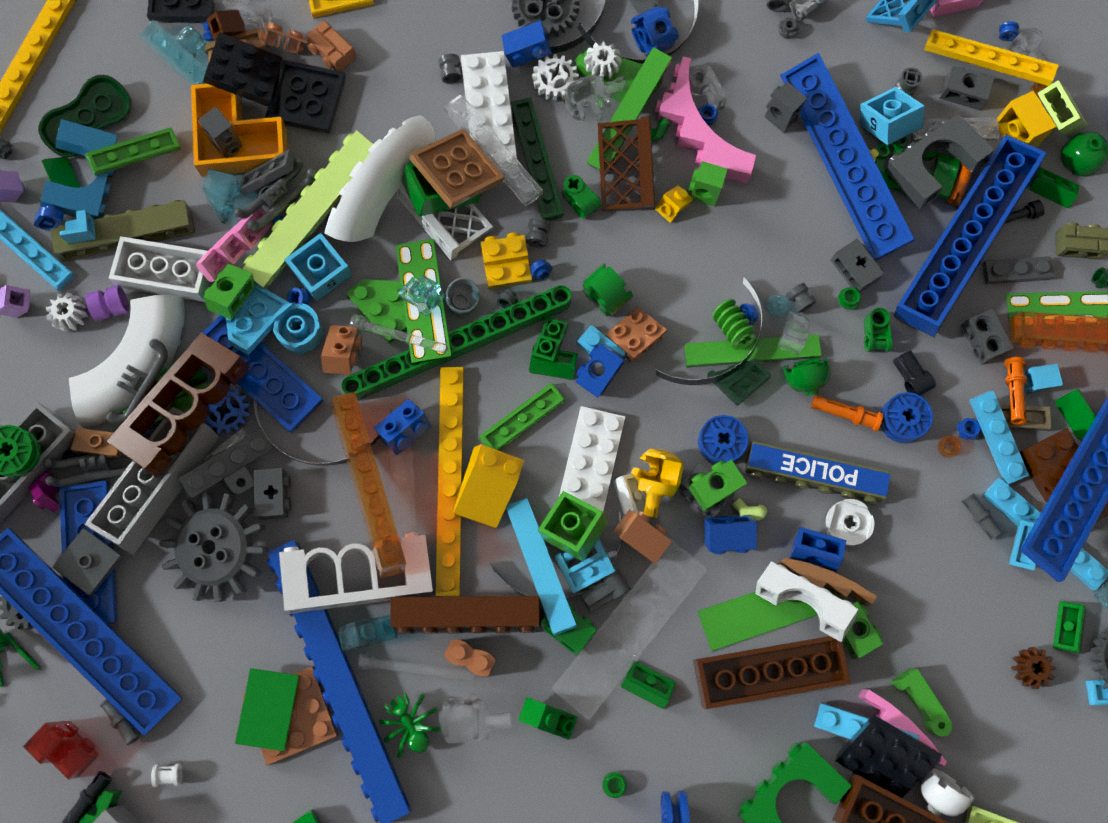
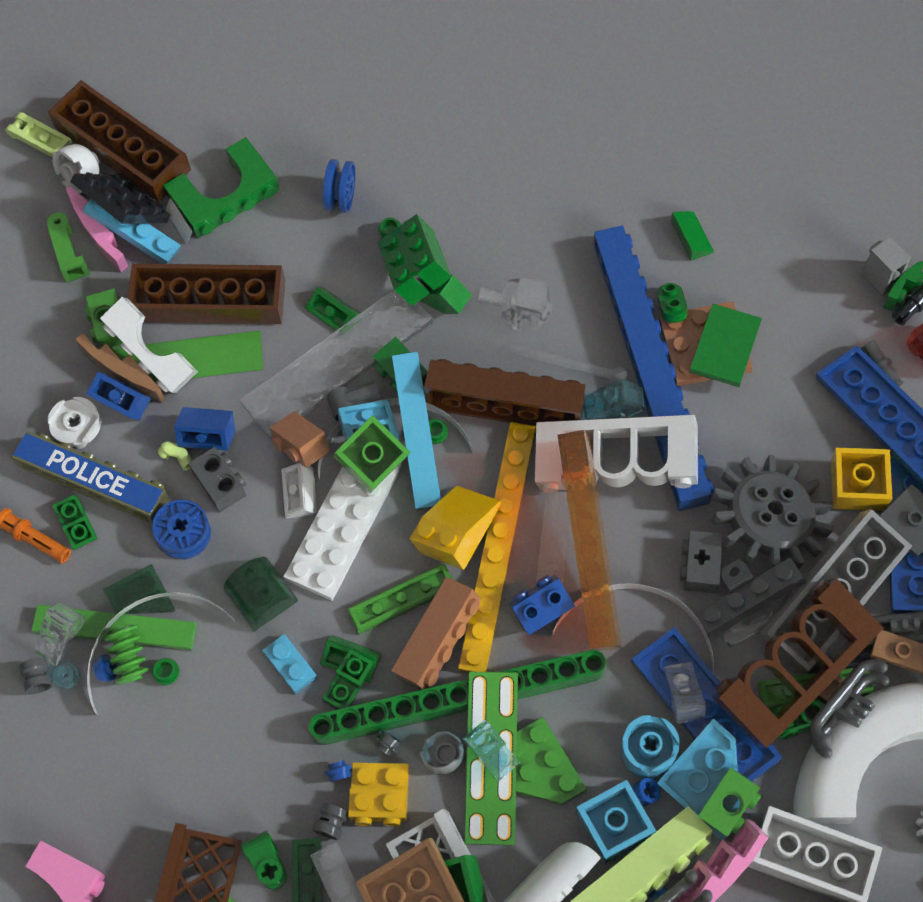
camera: 160 degrees left, 10 degrees down
(110, 302) = (888, 827): medium lavender wheel -> none
(135, 593) = (861, 479): none -> yellow brick
(166, 775) = (835, 308): white bush -> none
(235, 411) = (741, 655): blue gear -> none
(273, 372) = (685, 693): none -> clear plate
(324, 751) = (672, 303): none -> green plate
(341, 349) = (600, 707): nougat brick -> none
(365, 325) = (571, 742): clear piece -> none
(412, 728) = (581, 310): green animal -> none
(476, 660) = (502, 354): nougat brick -> none
(484, 386) = (436, 634): none -> nougat brick
(522, 576) = (438, 431): none -> green plate
(579, 740) = (411, 252): none -> green piece
(607, 289) = (264, 722): green brick -> none
(612, 363) = (283, 631): blue brick -> none
(636, 333) = (243, 670): nougat hinge -> none
(640, 400) = (259, 592): none -> clear green brick
(661, 479) = (266, 495): yellow piece -> none
(673, 202) = (148, 830): yellow bracket -> none
(699, 322) = (165, 671): none -> green plate
(707, 183) = (99, 837): bright green brick -> none
(709, 496) = (190, 464): bright green brick -> none
(808, 375) = (61, 581): green cylinder -> none
(815, 432) = (75, 522): none -> green slope
(824, 753) = (178, 221): none -> white sticker

